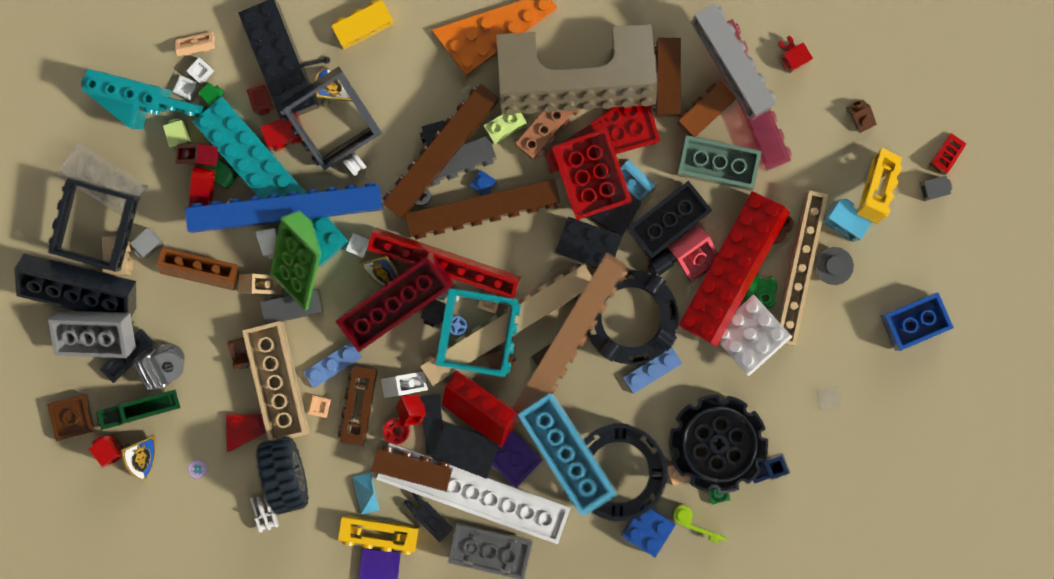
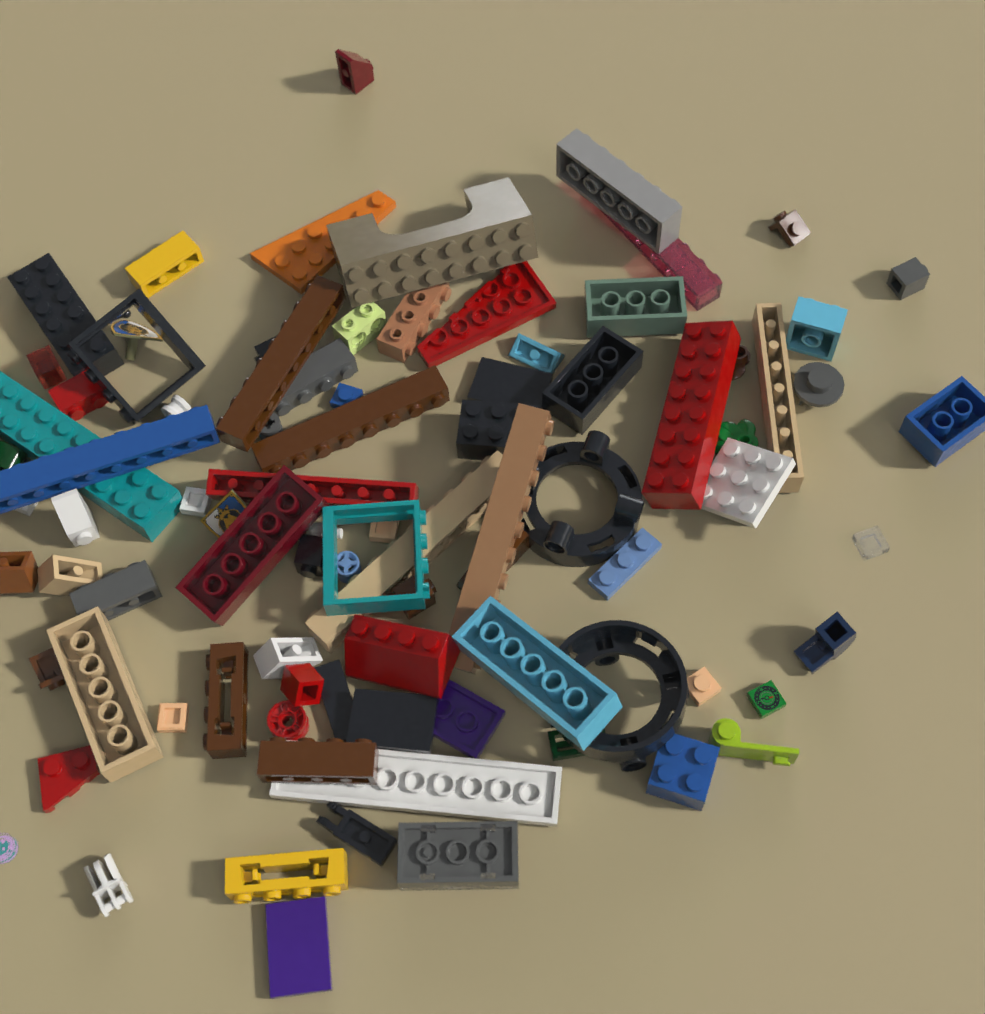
camera: 15 degrees left, 25 degrees down
(282, 475) = (124, 810): black wheel -> none
(296, 257) = (106, 512): bright green slope -> none
(332, 365) = (182, 658): medium blue plate -> none
(366, 493) = (258, 824): medium azure slope -> none
(592, 174) = (481, 344): red slope -> none
(661, 262) = (601, 423): black brick -> none
(668, 76) = (553, 259): reddish brown brick -> none
(693, 252) = (635, 411): coral slope -> none
(706, 109) = (603, 258): dark orange brick -> none
(750, 446) = (729, 666): black piece -> none
(795, 56) = (689, 187): red brick -> none
(876, 207) = (846, 291): yellow brick -> none
(938, 165) = (899, 255): red slope -> none

